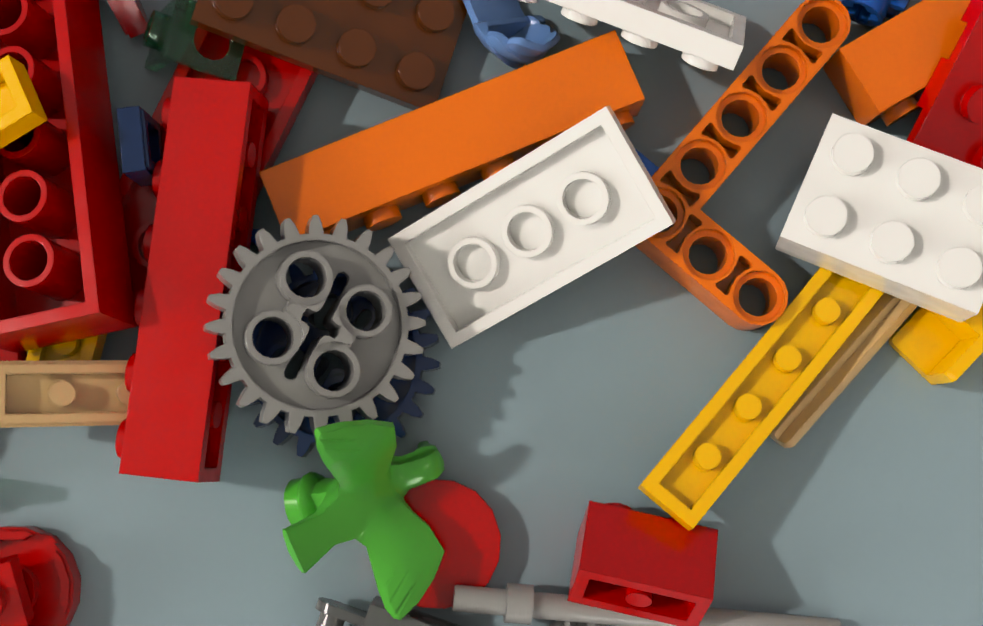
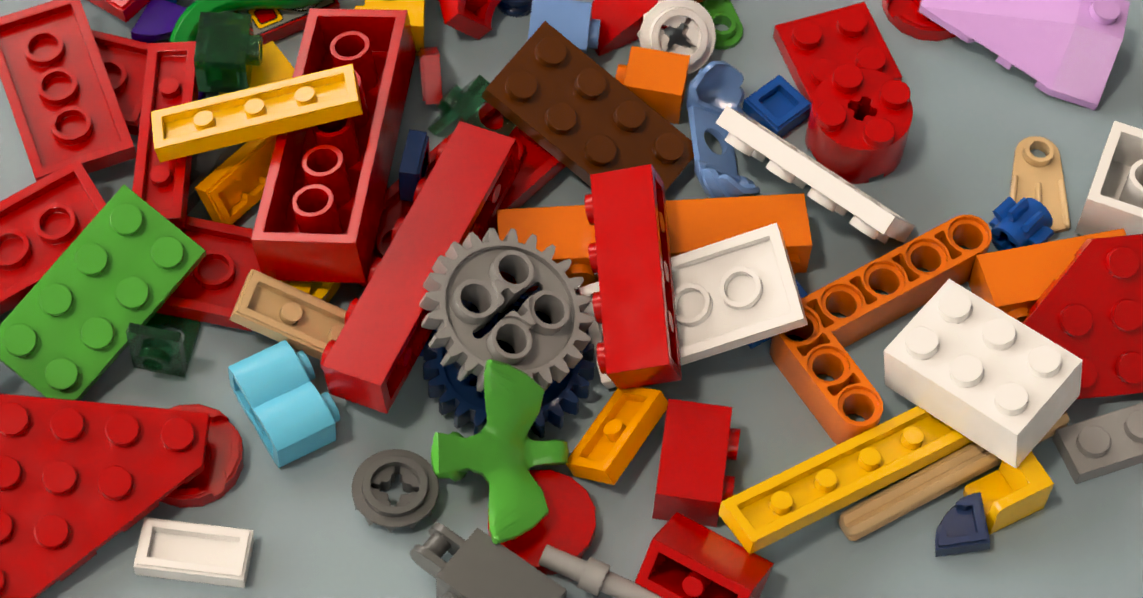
camera: 15 degrees right, 25 degrees down
(92, 504) = (284, 403): none -> medium azure brick
(244, 586) = (378, 474): none -> dark grey gear
(451, 224) = (633, 278): none -> red brick
(490, 410) = (617, 434): none -> light orange plate
(589, 419) = (694, 461): none -> red brick
(905, 395) = (963, 528): none -> dark blue tile

